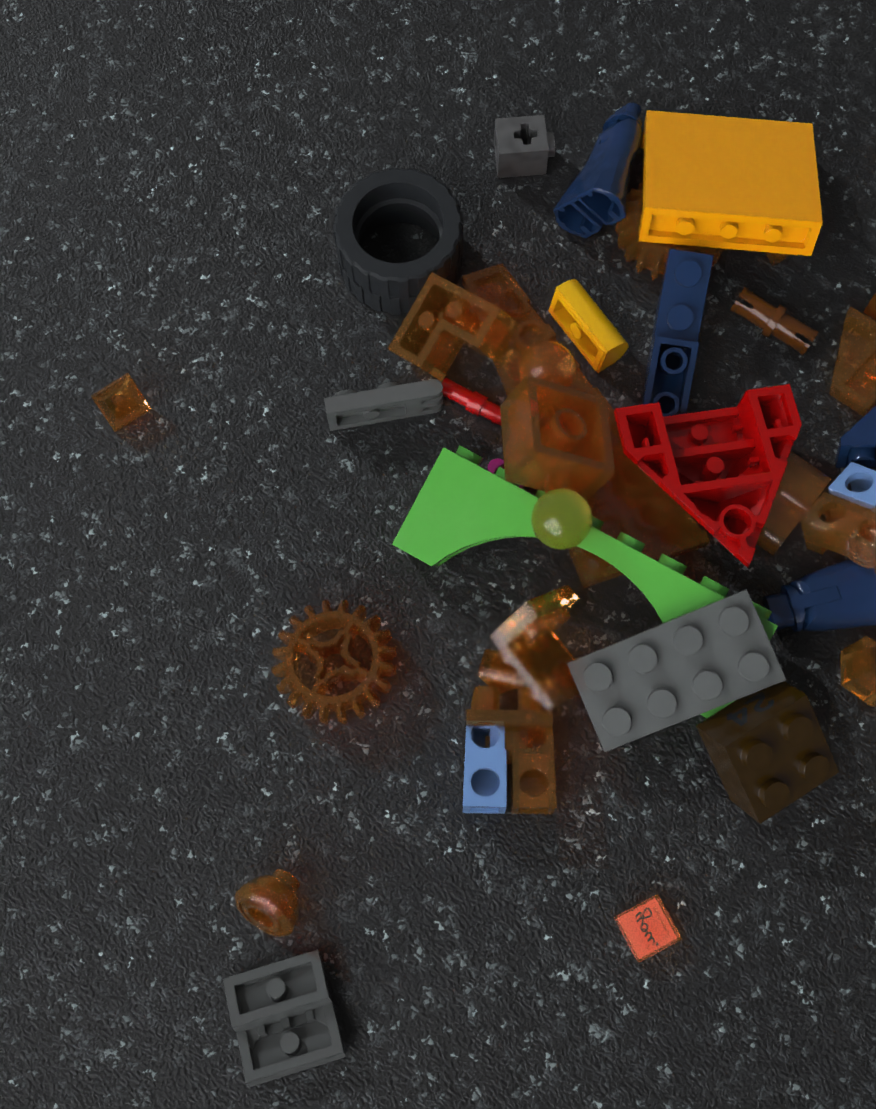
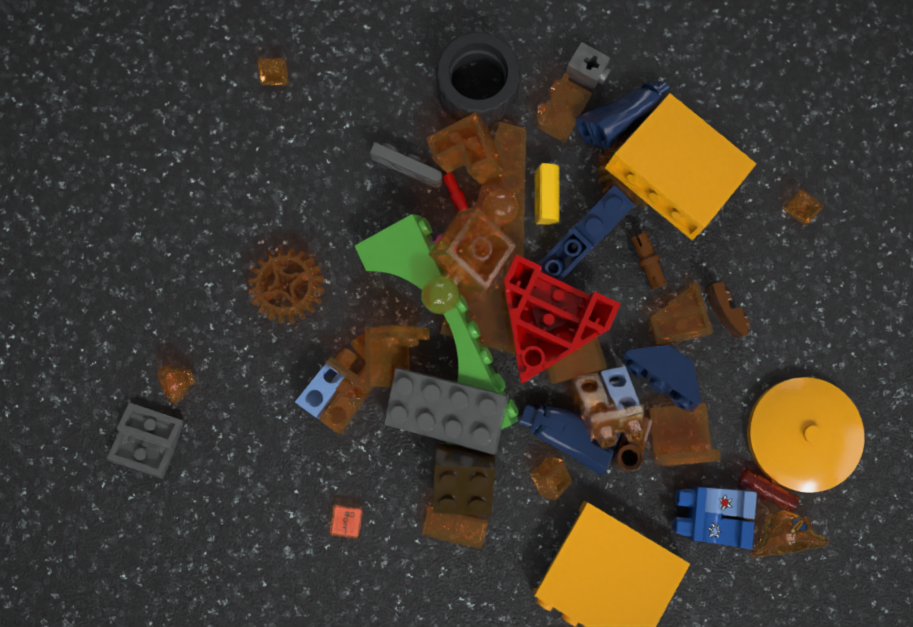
camera: 30 degrees right, 10 degrees up
(528, 213) = (564, 106): none -> clear orange bracket
(801, 826) = (456, 528): none -> clear orange slope

